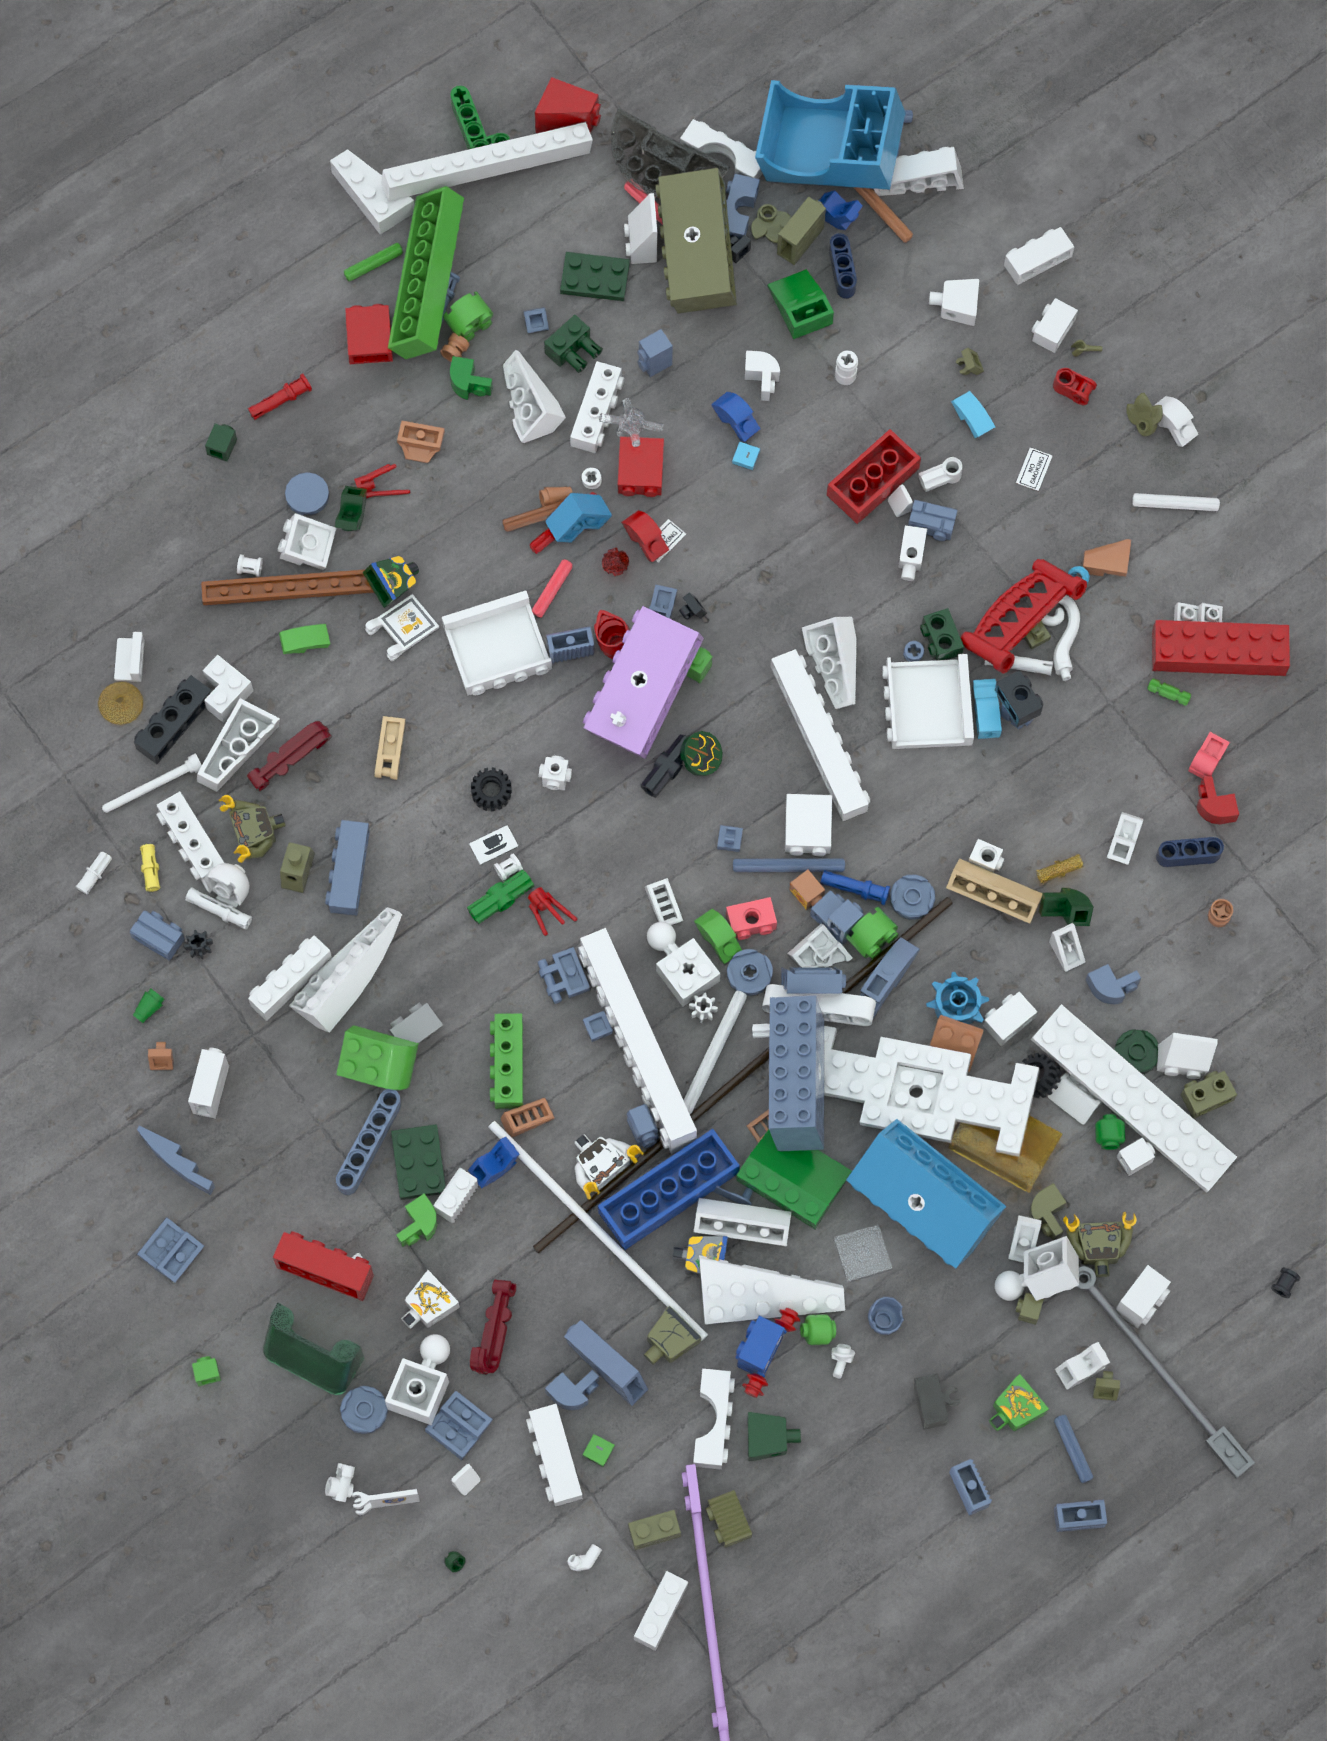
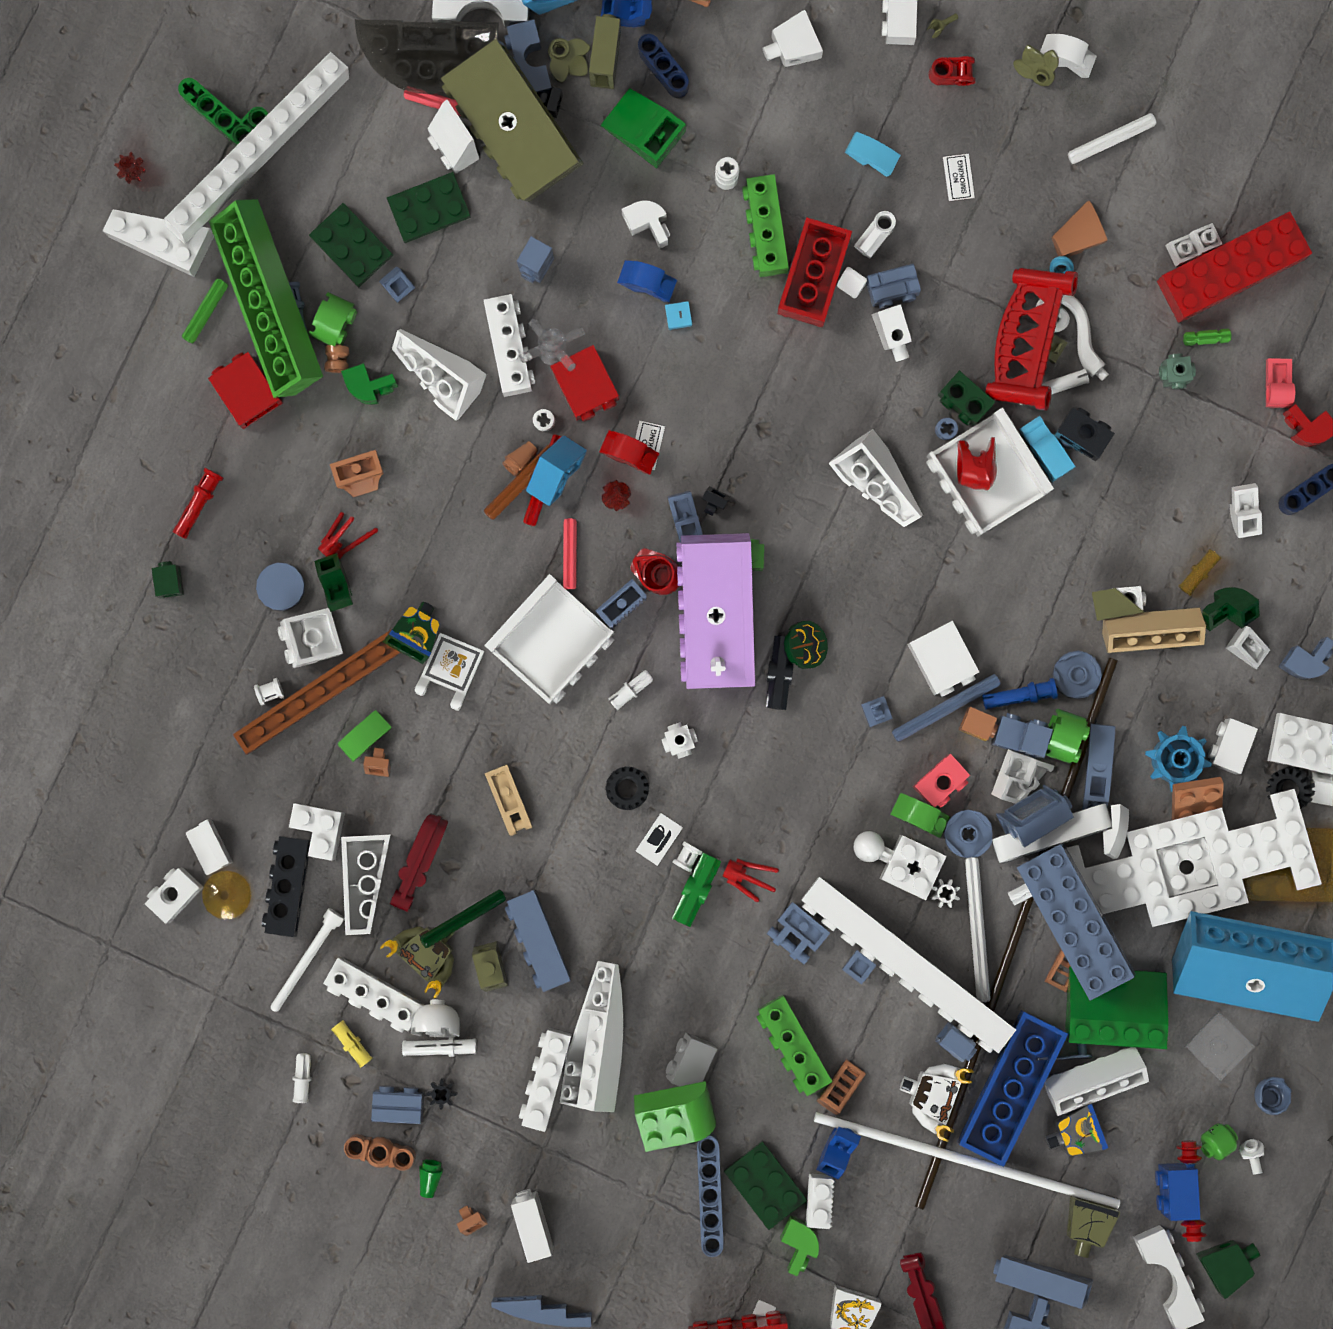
camera: 25 degrees left, 15 degrees up
(72, 688) = (186, 887): none -> white brick
(115, 954) = (367, 1153): none -> nougat piece
(298, 815) = (462, 918): none -> dark green axle
(301, 664) = (377, 764): none -> nougat tile
(379, 129) = (134, 173): none -> clear red gear
(517, 272) = (350, 245): none -> dark green plate
(539, 715) = (630, 689): none -> white axle
(566, 106) = (302, 47): red slope -> none
(567, 340) = (441, 292): dark green brick -> none
(671, 900) = (835, 795): white slope -> none
(748, 1292) = (1150, 1138): white wing -> none
(820, 735) = (905, 563): white brick -> none
(856, 423) = (766, 225): none -> bright green brick
(871, 1031) = (1115, 837): none -> white slope
(919, 690) = (975, 471): none -> red helmet
(971, 361) = (842, 99): olive tile -> none
(971, 851) = (1113, 604): none -> olive sticker
(1128, 702) = (1171, 377): none -> sand green brick

